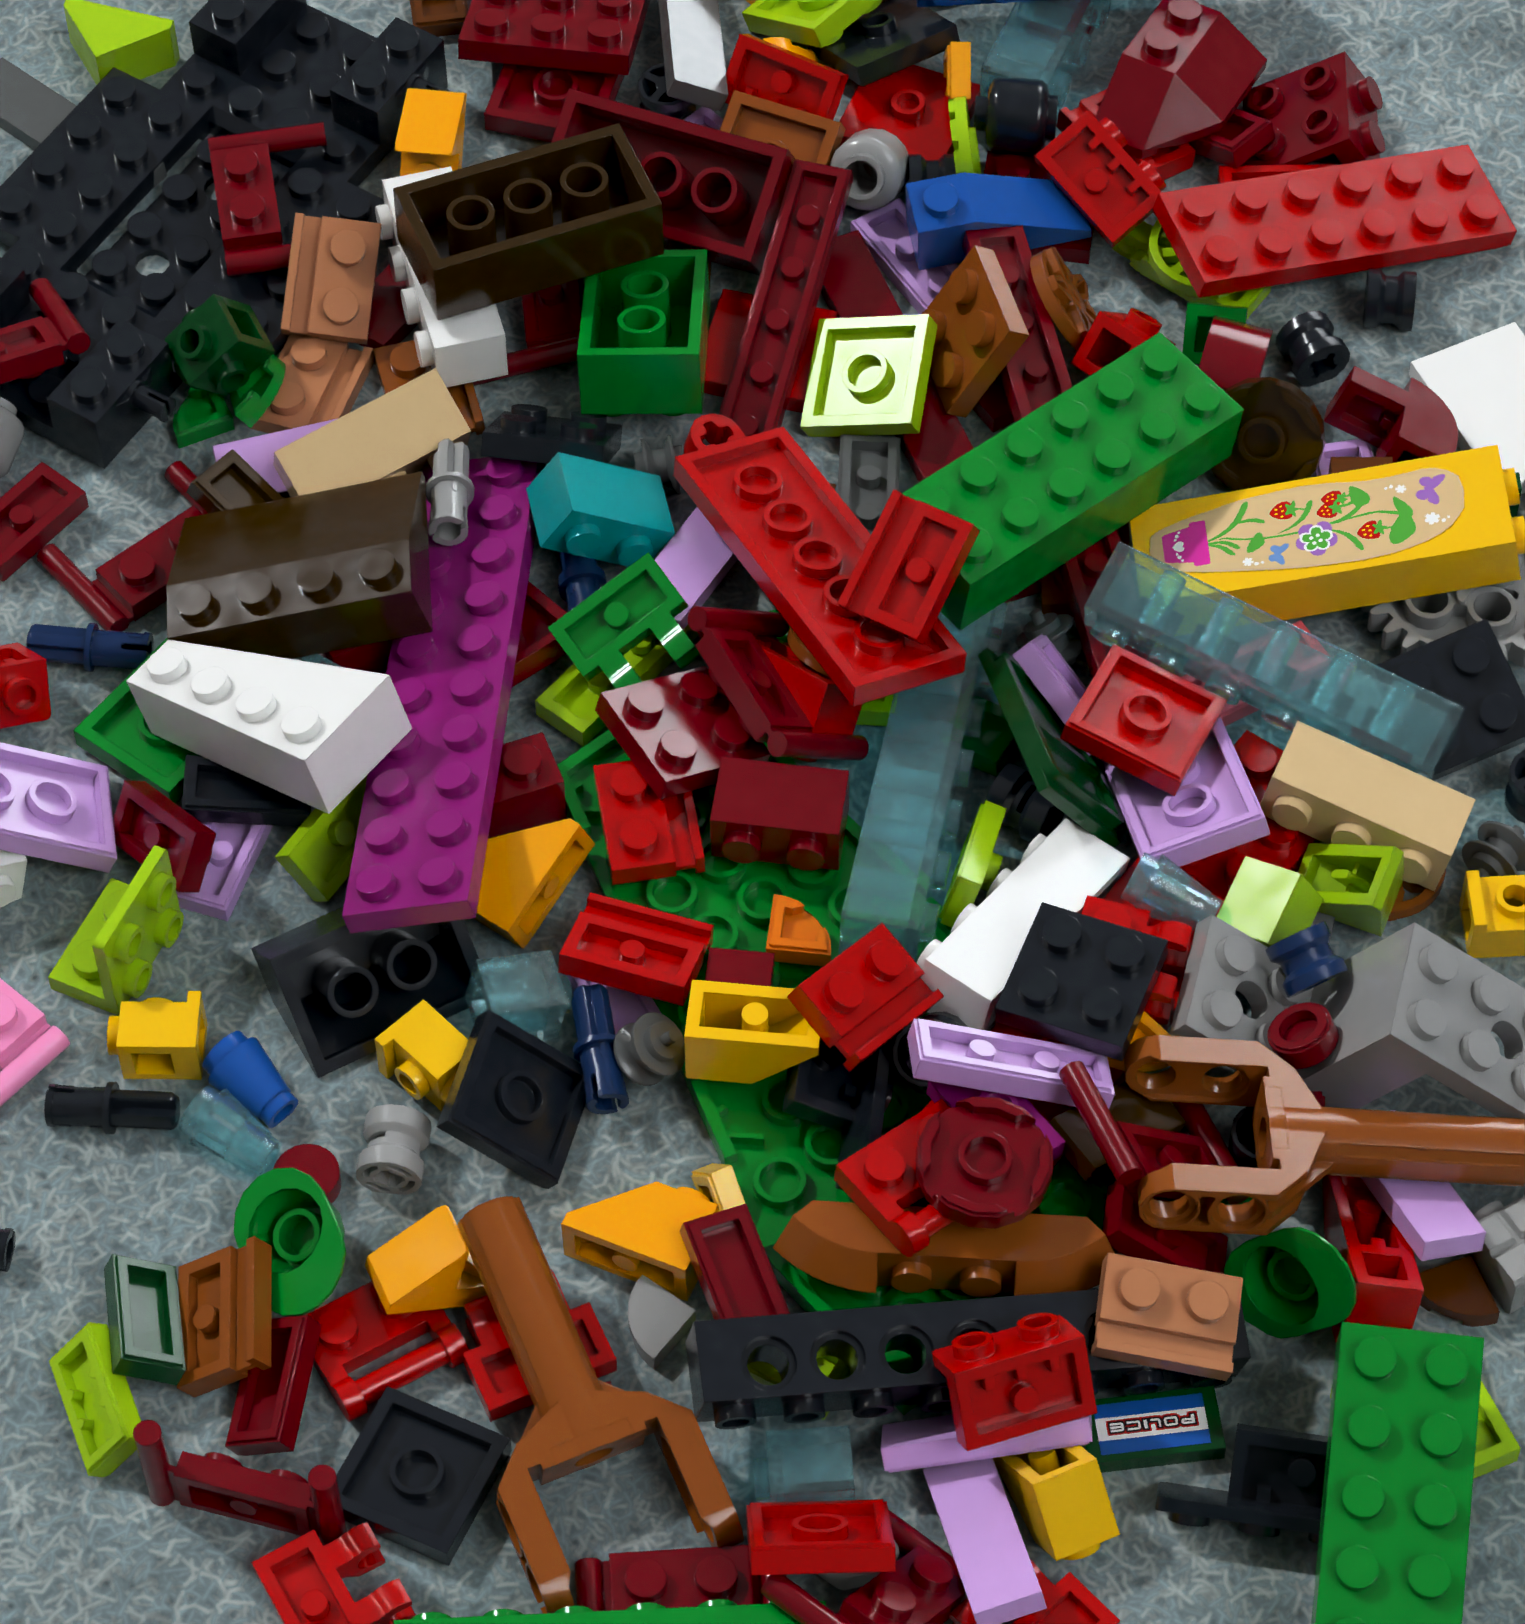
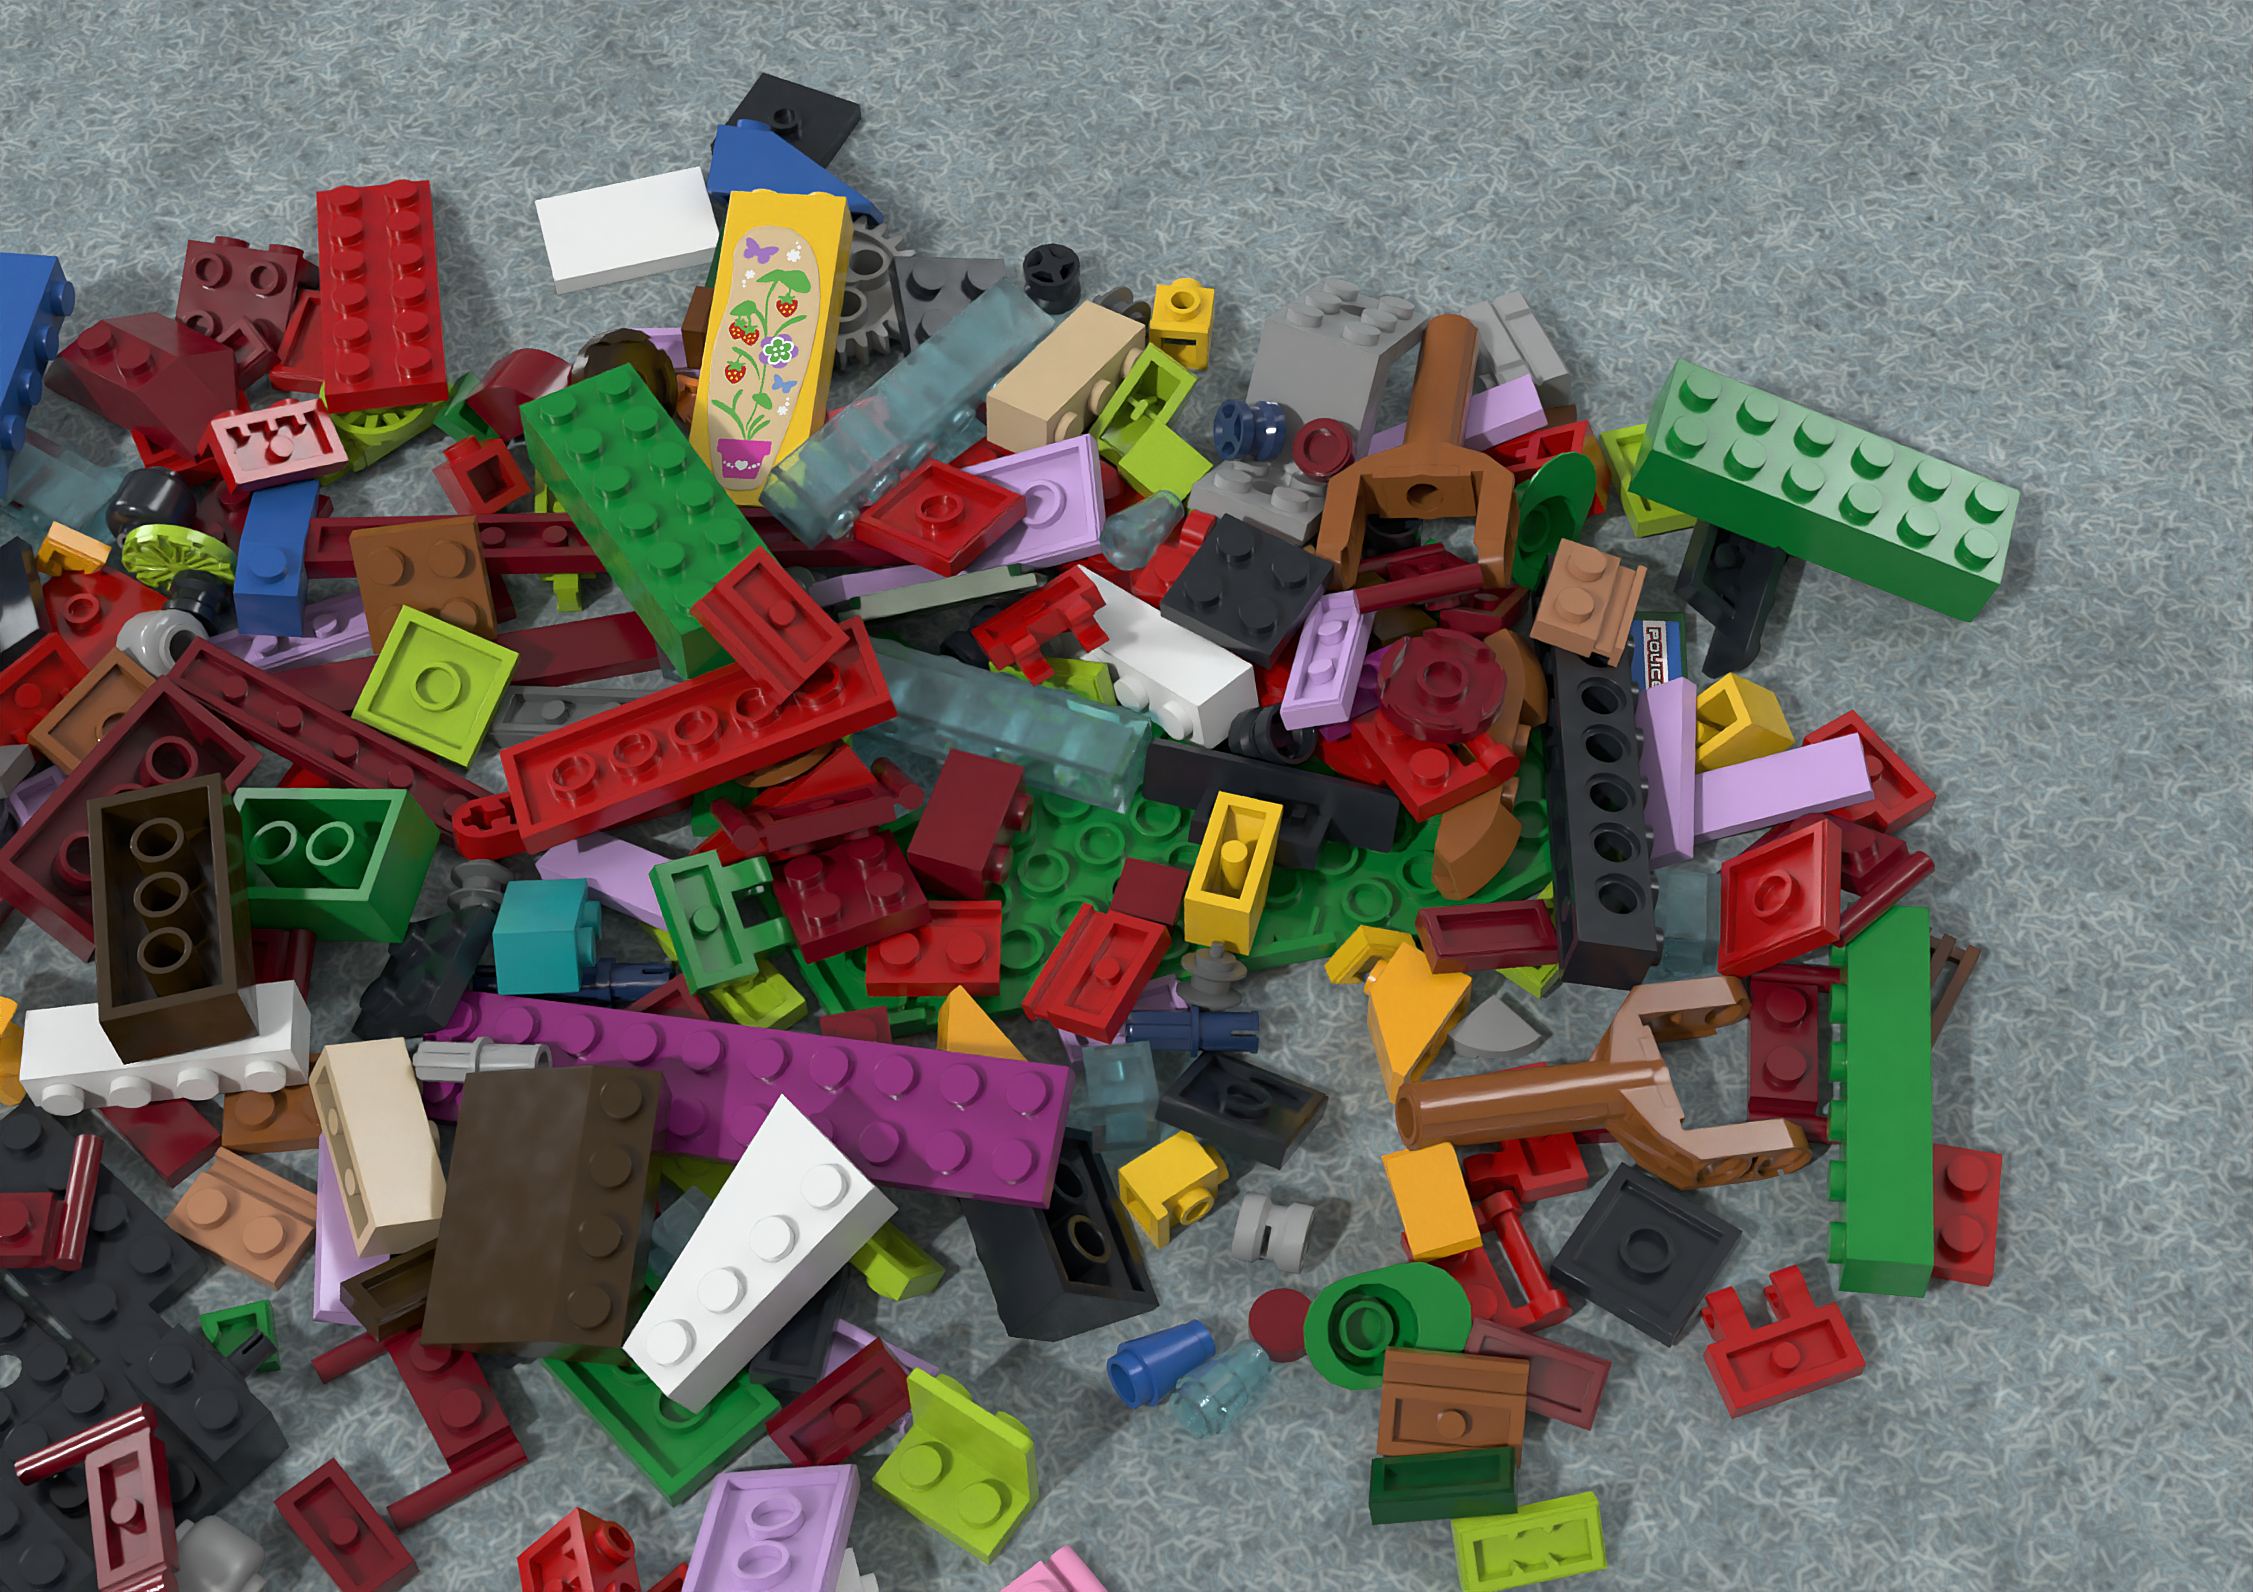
camera: 80 degrees left, 0 degrees up
(90, 646) = (548, 1476): dark blue axle -> none
(110, 1108) = (1168, 1505): black axle -> none
(160, 1038) = (1094, 1441): yellow brick -> none
(218, 345) = (191, 1254): dark green brick -> none
(228, 1489) = (1663, 1380): dark red plate -> none
(259, 391) = (248, 1261): green tile -> none
(331, 278) = (132, 1155): nougat plate -> none
(796, 934) = (1099, 843): orange tile -> none
(864, 996) = (1228, 762): red plate -> none
(1015, 815) = (1056, 607): none -> red plate
(1016, 1379) = (1644, 713): red bracket -> none
(1063, 295) = (402, 504): dark orange wheel -> none
(1312, 348) = (513, 336): black wheel -> none
(1389, 299) = (479, 280): black wheel -> none
(1395, 420) = (643, 289): dark red brick -> none

